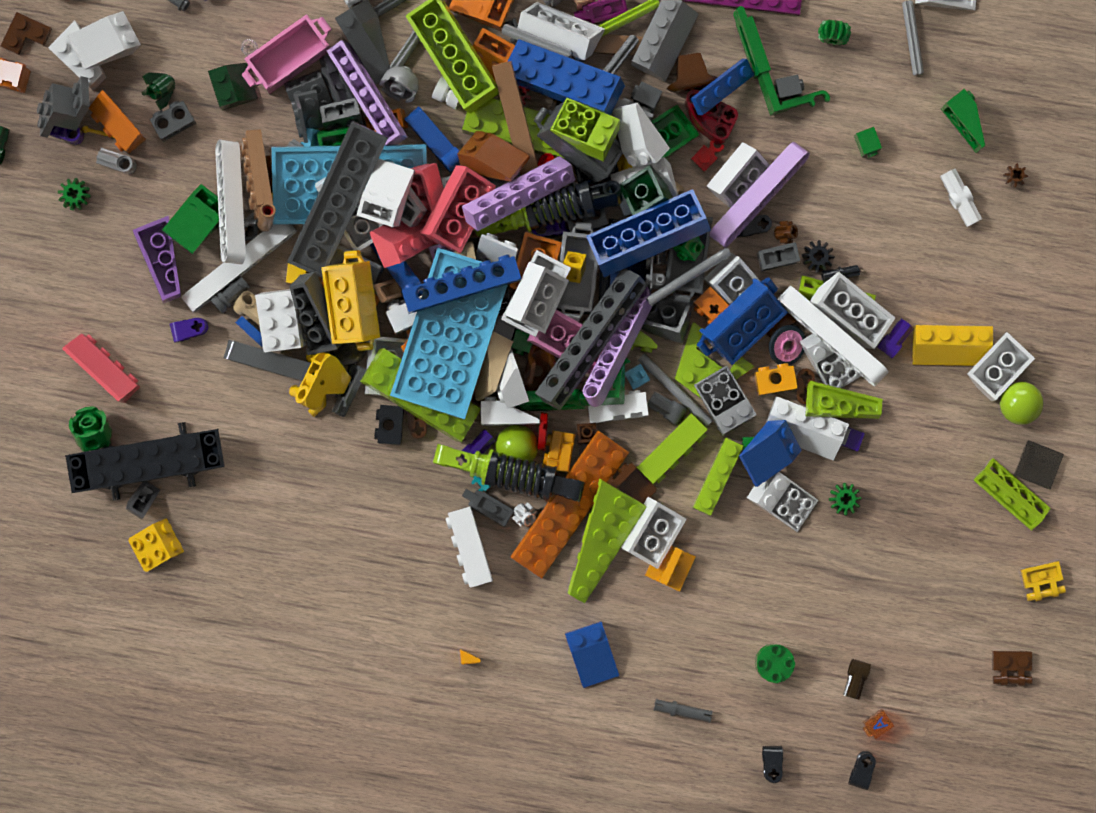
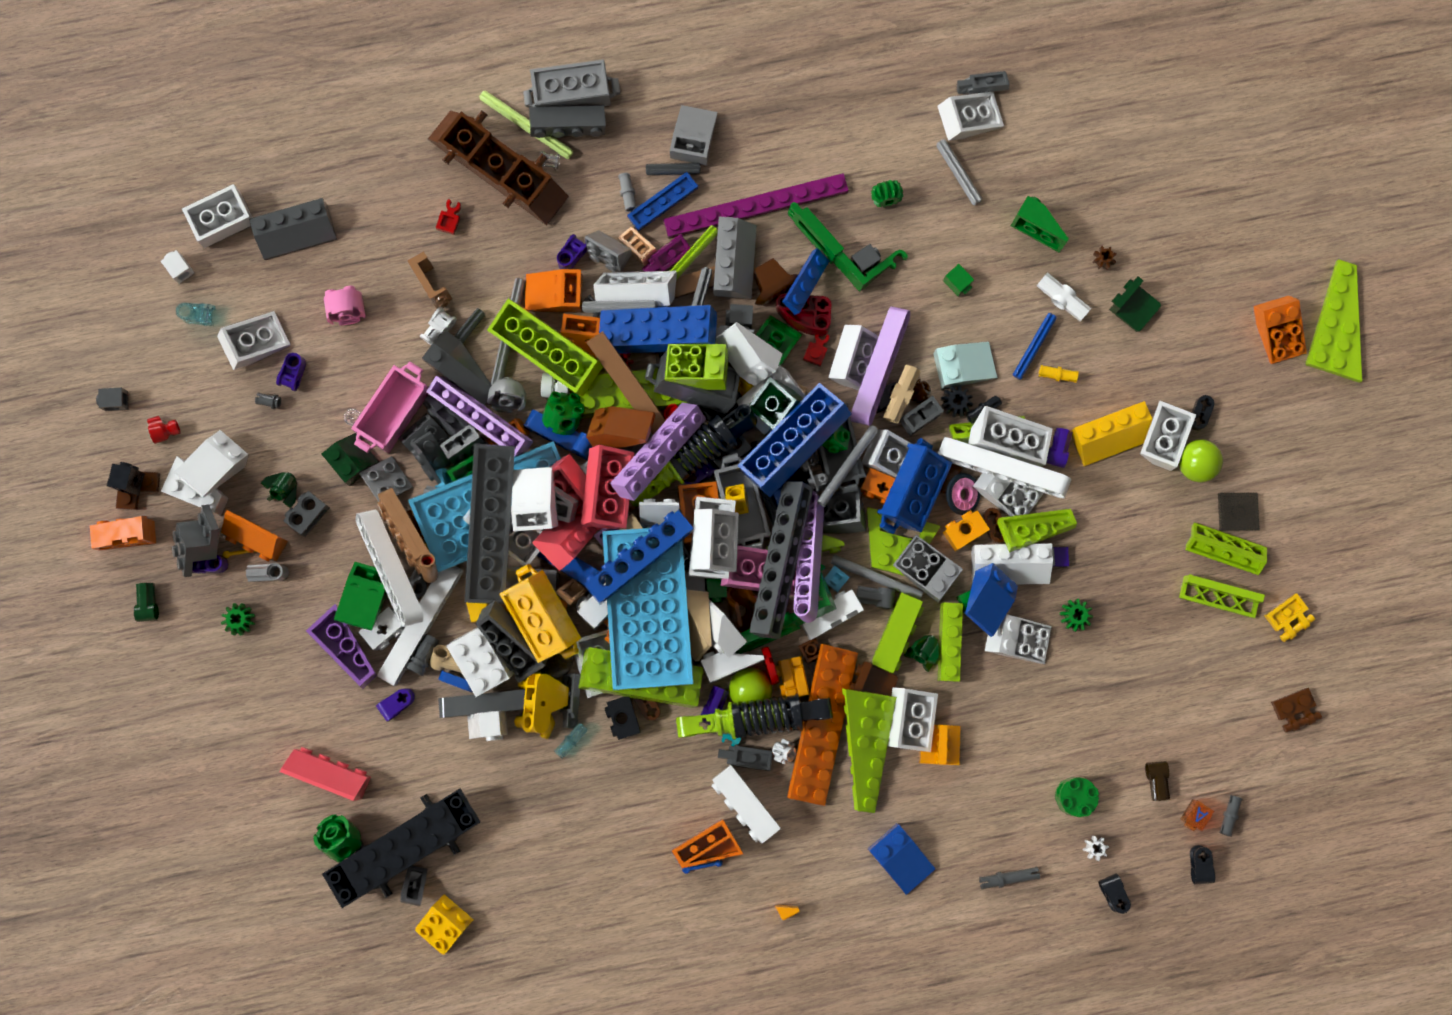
camera: 25 degrees left, 5 degrees down
(21, 23) = (125, 478): none -> black brick
(211, 249) = (377, 639): none -> white brick
(258, 115) = (386, 476): none -> light grey hinge
(265, 382) = (488, 724): none -> white wedge
(334, 426) = (570, 740): none -> clear light blue axle
(421, 571) = (708, 845): none -> orange wedge
(424, 590) = (718, 863): none -> blue hinge
(445, 121) = (563, 413): none -> green brick
(691, 476) = (925, 651): none -> dark green brick
(767, 229) = (901, 394): none -> tan piece
(778, 716) = (1089, 848): none -> white gear
(840, 224) = (964, 364): none -> light aqua slope
(909, 737) = (1230, 815): none -> dark grey pin
(914, 233) = (1034, 346): none -> blue axle
(924, 268) = (1058, 374): none -> yellow pin
(992, 530) = (1226, 590): none -> lime fence
(1025, 232) = (1134, 305): none -> dark green bracket
(1041, 356) = (1205, 414): none -> black beam

